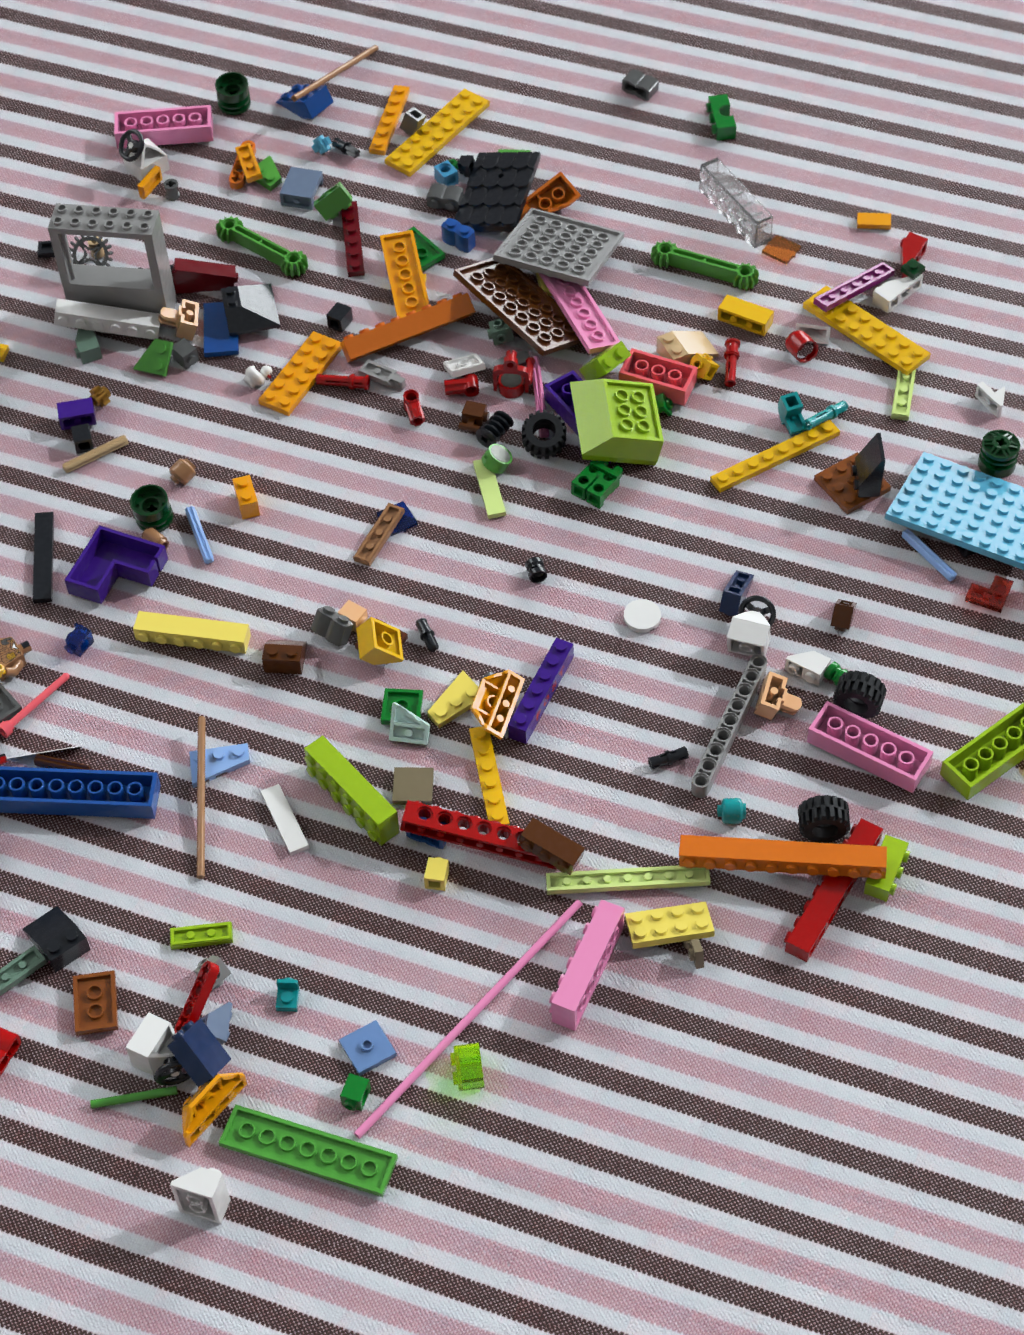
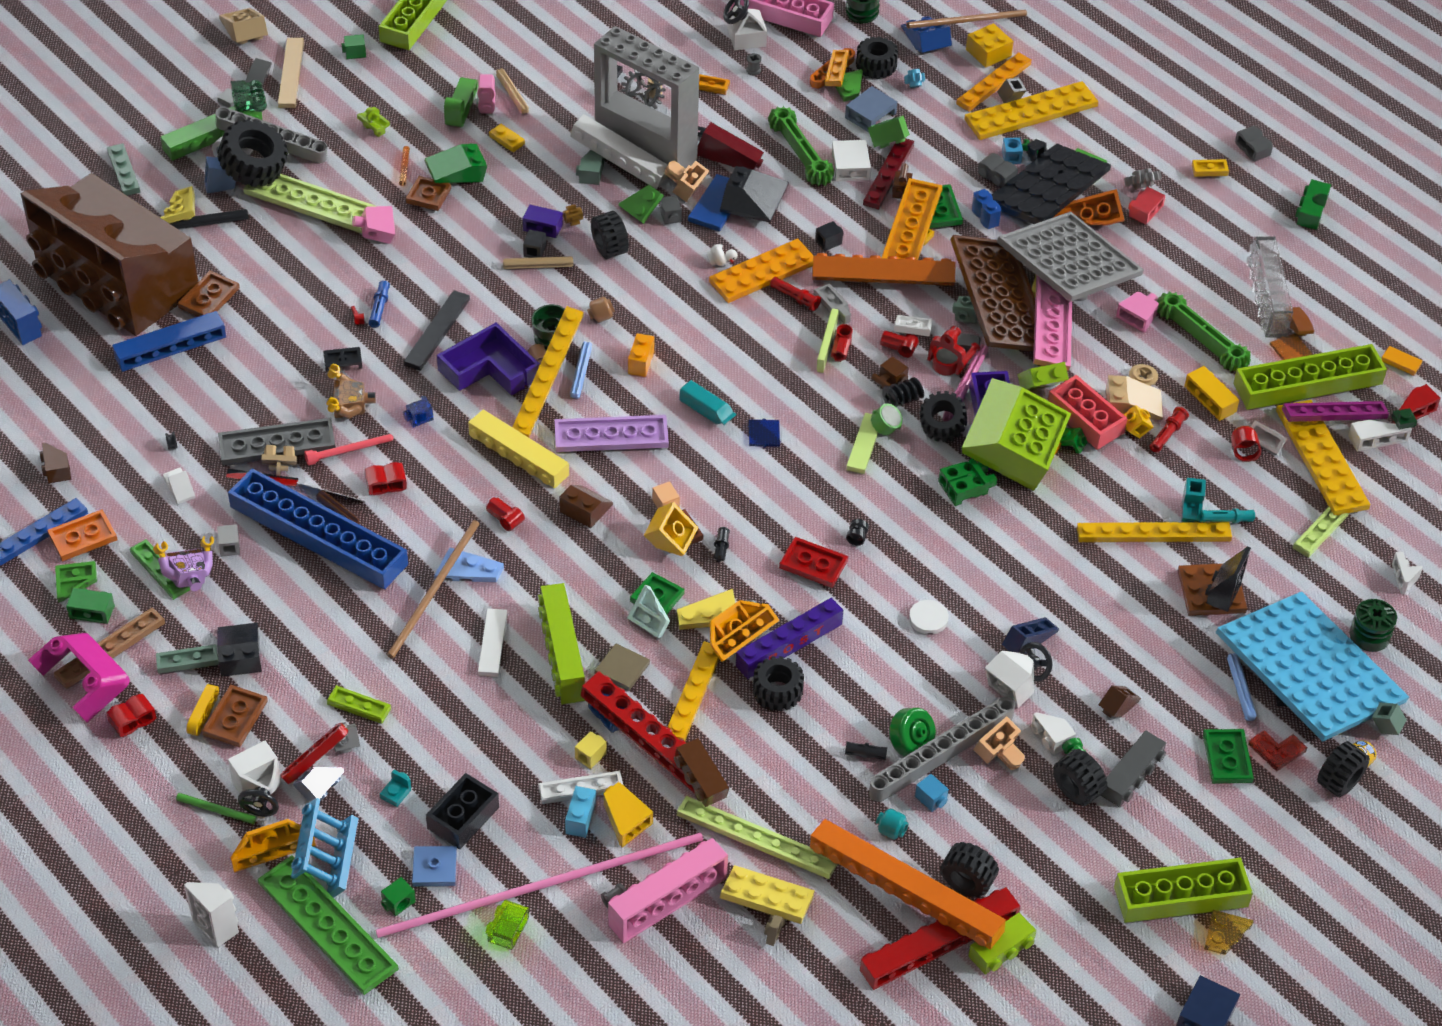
camera: 25 degrees right, 5 degrees down
(61, 1012) = (202, 710): none -> yellow beam
(88, 716) = (385, 478): none -> red brick
(148, 399) = (609, 234): none -> black tyre
(149, 182) = (739, 50): light orange tile -> none
(175, 548) = (547, 371): none -> yellow plate
(198, 1051) = (284, 792): dark blue brick -> none
(223, 698) = (508, 516): none -> red piece
(265, 580) = (611, 433): none -> lavender plate
(277, 138) = (877, 57): none -> black tyre
(278, 1077) = (342, 847): none -> dark azure fence
(314, 240) = (851, 160): none -> white panel
(332, 515) = (706, 403): none -> teal piece
(332, 626) = (640, 497): dark grey brick -> none
(346, 147) = (936, 90): black axle -> none
(362, 985) = (462, 811): none -> black brick
(366, 88) = (989, 45): none -> yellow brick
(372, 243) = (900, 181): none -> reddish brown brick
(379, 534) = (737, 439): medium nougat tile -> none
(399, 411) = (827, 340): none -> yellowish green tile
(448, 911) = (563, 789): none -> white tile
(465, 933) = (580, 811): none -> medium azure brick
(503, 914) = (626, 813): none -> yellow slope
(516, 613) = (813, 562): none -> red plate
(543, 993) = (618, 890): none -> dark grey bush
(556, 722) = (778, 671): none -> black tyre
(572, 153) = (1143, 178): none -> light grey gear
(588, 175) = (1146, 205): none -> coral brick
(618, 120) = (1210, 168): none -> yellow plate
(641, 269) = (1138, 310): none -> bright pink torso
(680, 319) = (1146, 371): none -> tan gear
(696, 722) = (911, 730): none -> green wheel
(746, 767) = (931, 793): none -> dark azure brick
(780, 225) = (1300, 322): none -> dark orange slope
(814, 266) = (1309, 376): none -> lime brick
(869, 746) = (1060, 829): bright pink brick -> none
(892, 664) = (1133, 768): none -> dark grey brick
(955, 618) = (1227, 756): none -> green tile

